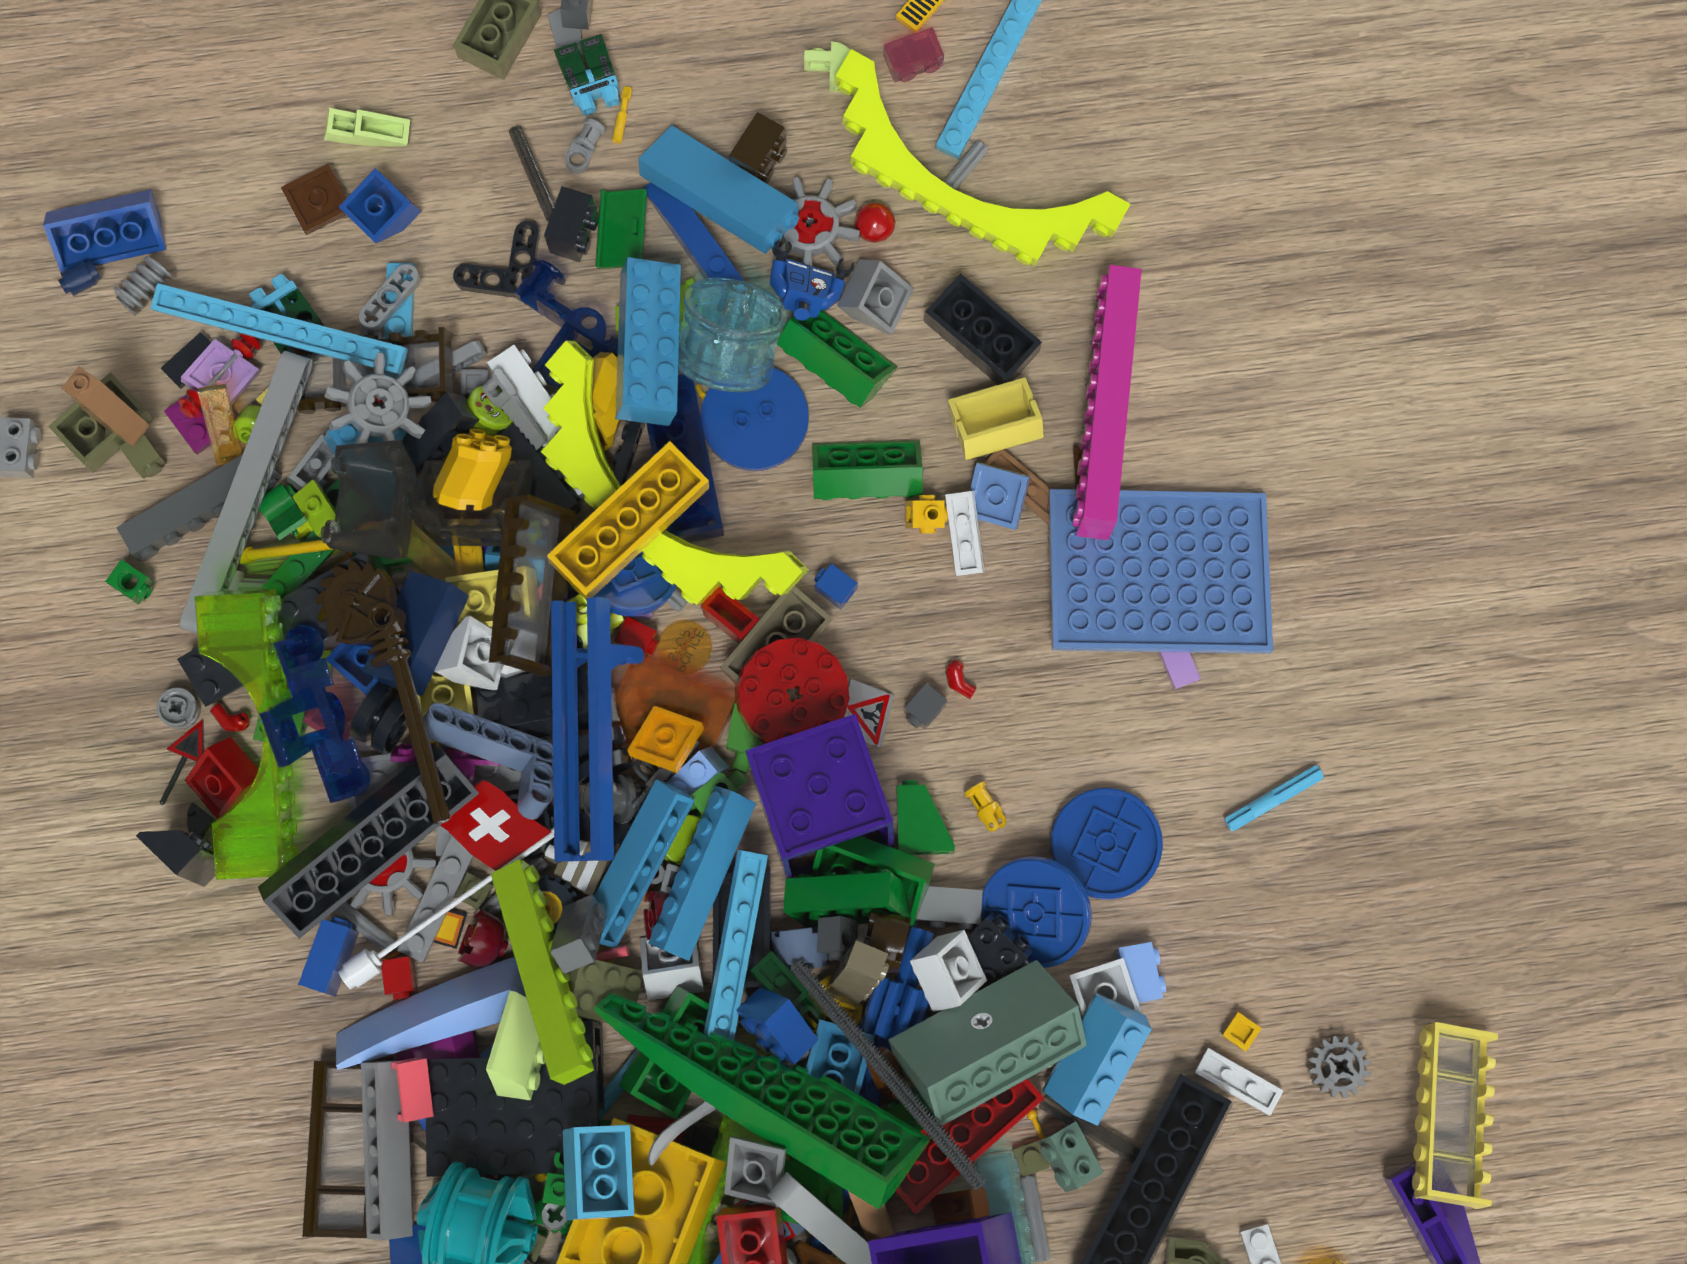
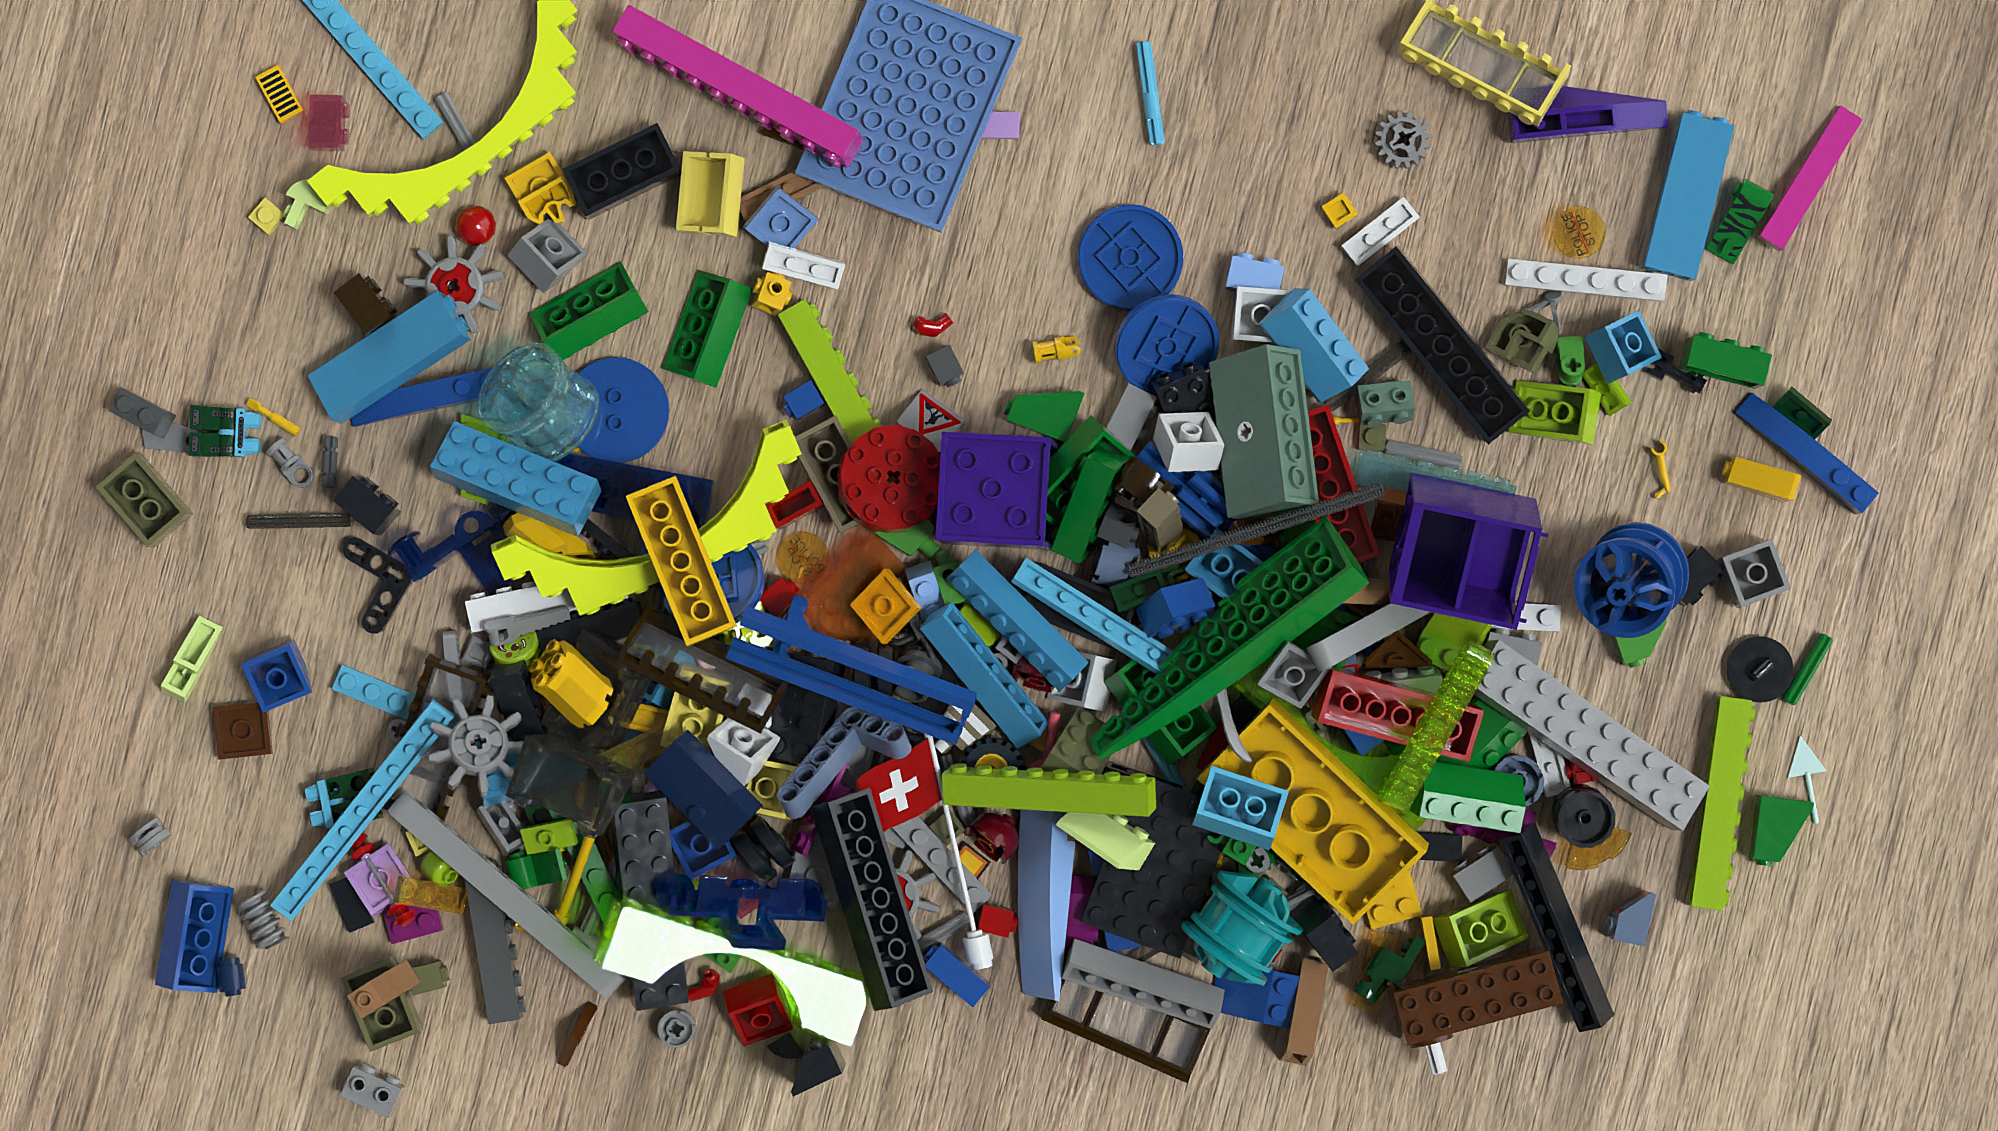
camera: 65 degrees left, 10 degrees up
(122, 575) = (534, 1038): green brick -> none
(139, 616) = (577, 1034): none -> reddish brown tile
(184, 154) = (151, 839): none -> light grey wheel
(188, 746) = (714, 1031): piece -> none
(356, 608) = (661, 830): dark brown piece -> none
(407, 287) = (353, 684): light grey beam -> none
(413, 1089) = (1103, 940): coral hinge -> none
(578, 934) = (1030, 746): dark grey brick -> none
(600, 179) = (329, 462): none -> dark grey axle
(618, 225) = (385, 463): green door -> none
(804, 287) = (515, 316): blue torso -> none
(805, 37) = (267, 216): none -> light yellow plate
(874, 597) = (827, 370): none -> lime brick
(933, 265) = (541, 189): none -> yellow plate

